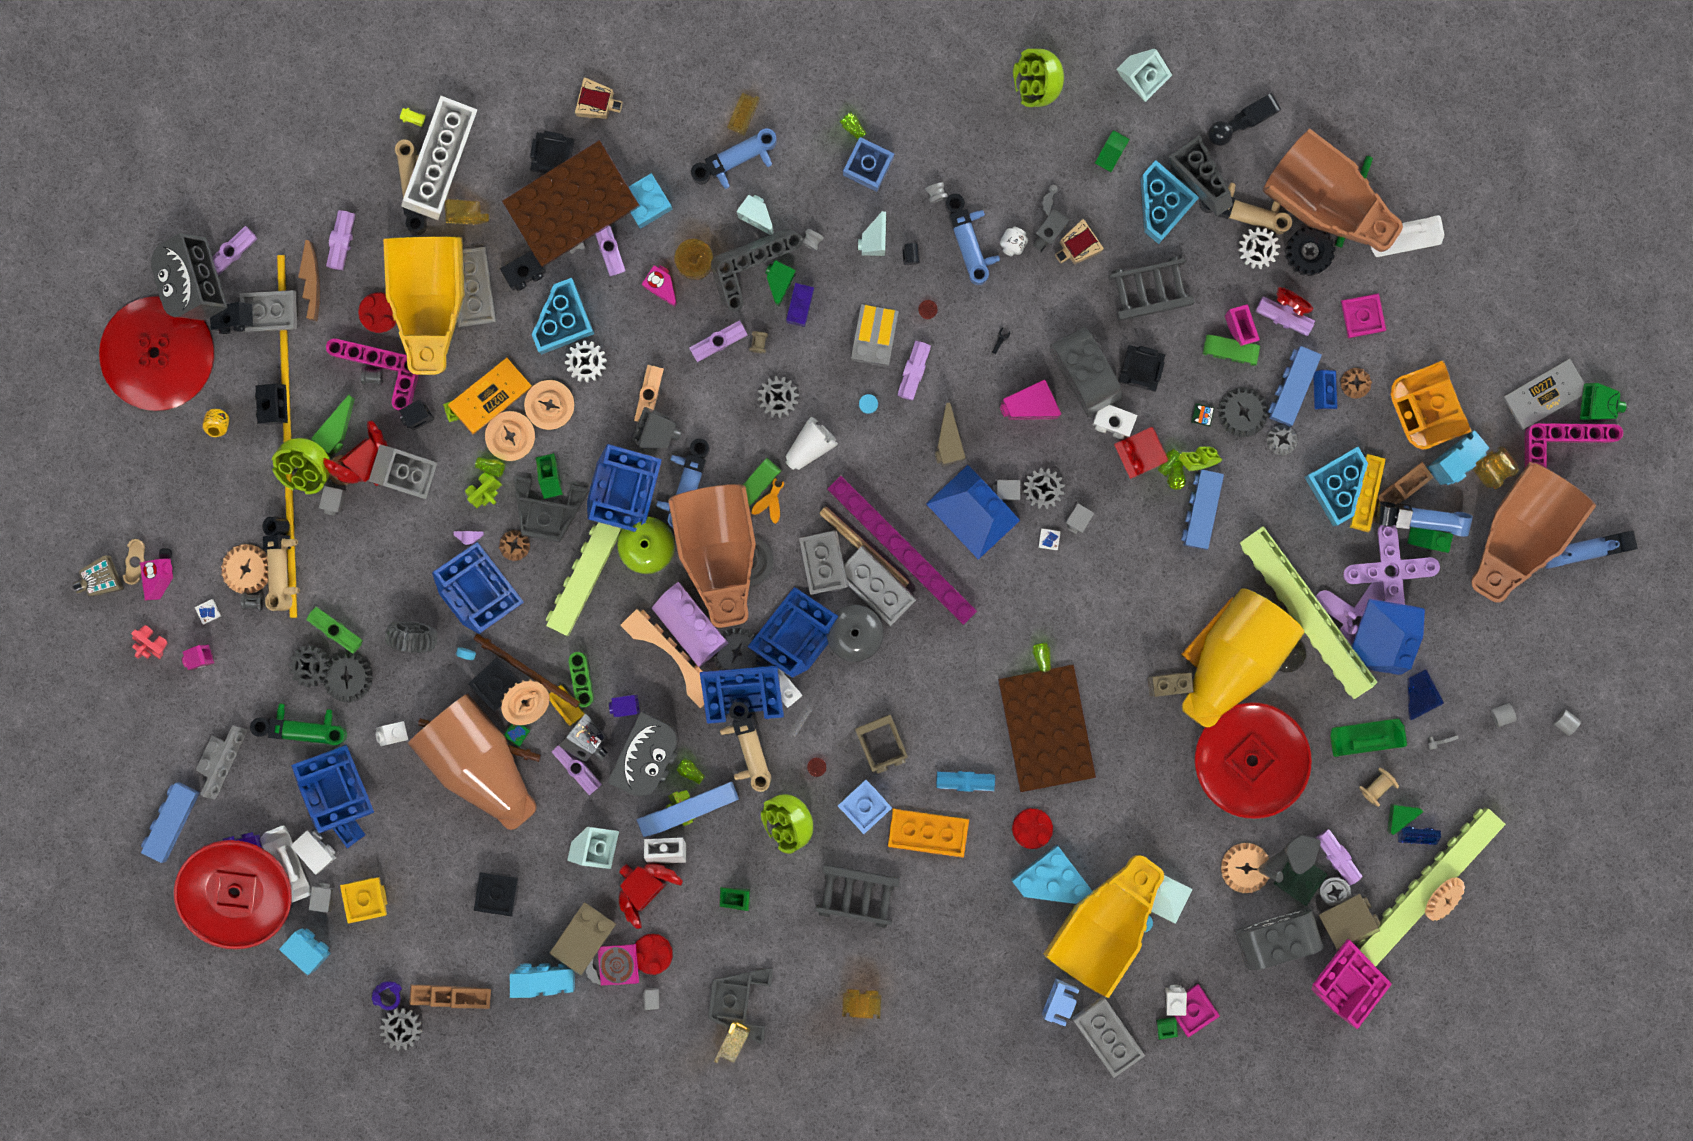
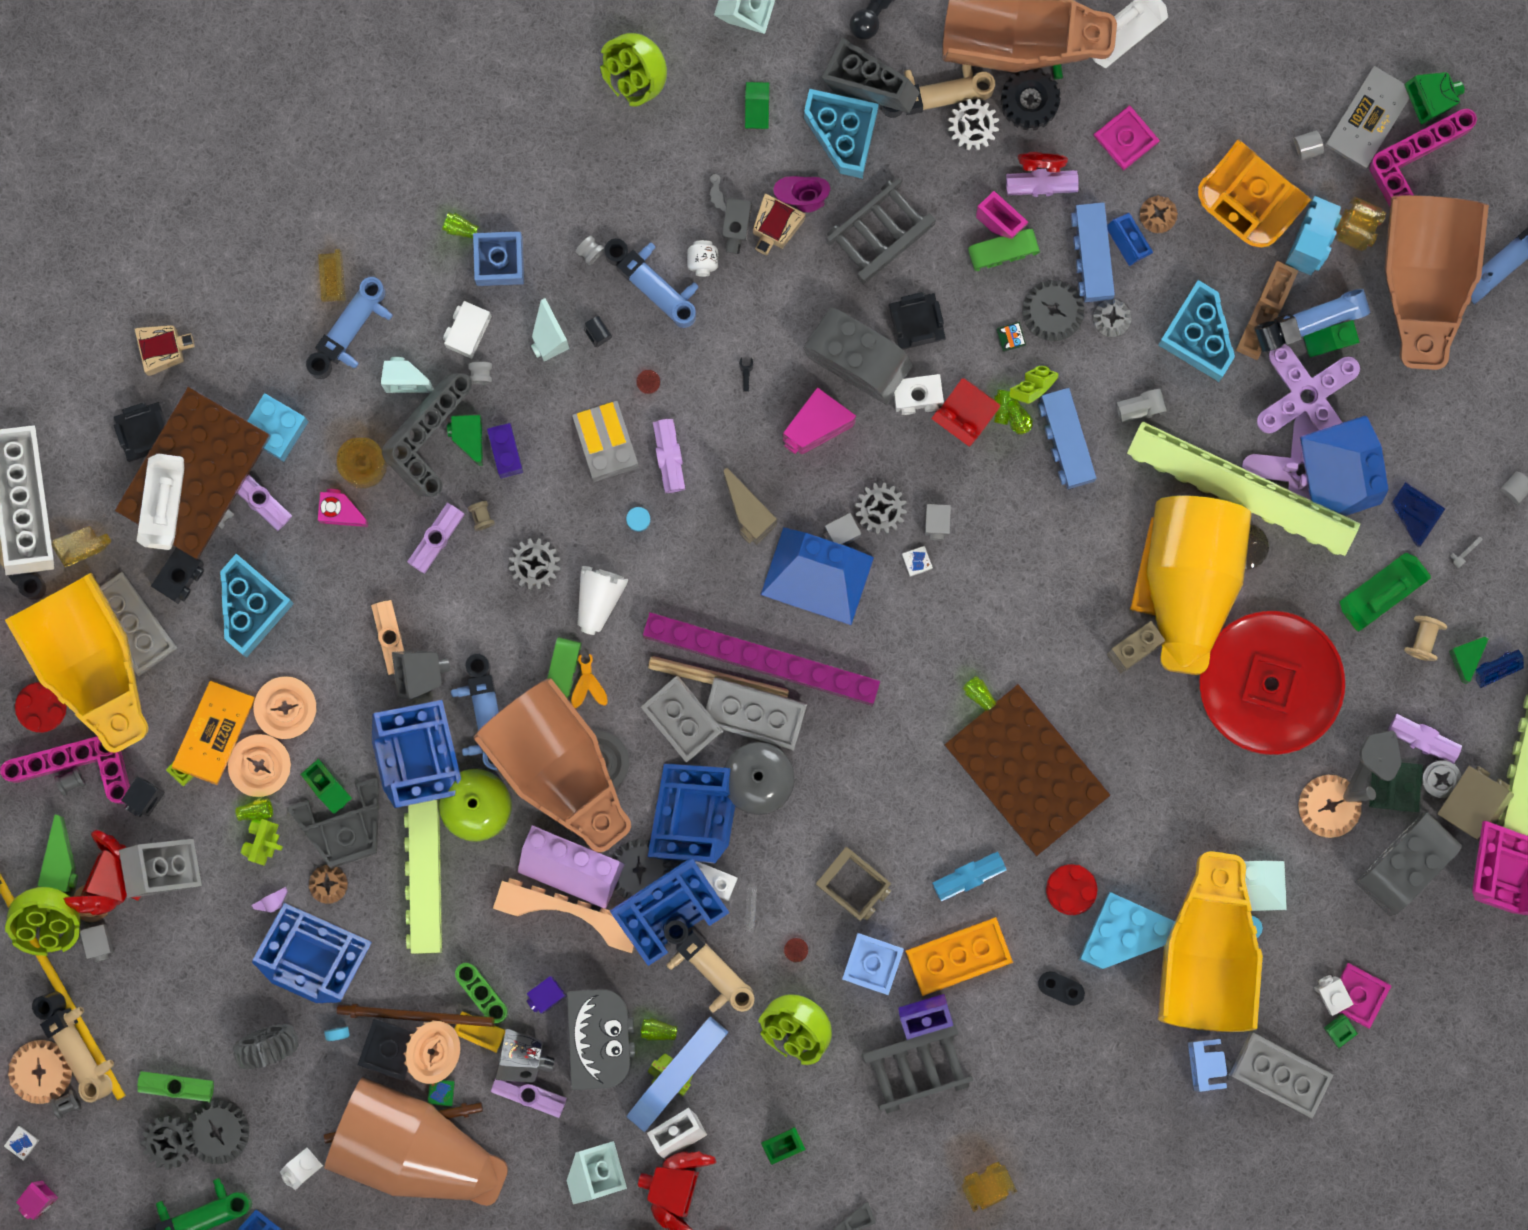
camera: 25 degrees left, 5 degrees down
(537, 212) = (161, 501): none -> white piece
(578, 369) = (303, 627): white gear -> none
(819, 203) = (467, 329): none -> white brick
(882, 862) = (925, 1016): none -> dark purple brick
(988, 893) = (1061, 988): none -> black plate
(1110, 231) = (803, 192): none -> magenta piece
(1271, 515) = (1142, 406): none -> light grey piece
(1369, 492) = (1238, 326): yellow plate -> none
(1491, 390) = (1309, 145): none -> light grey brick

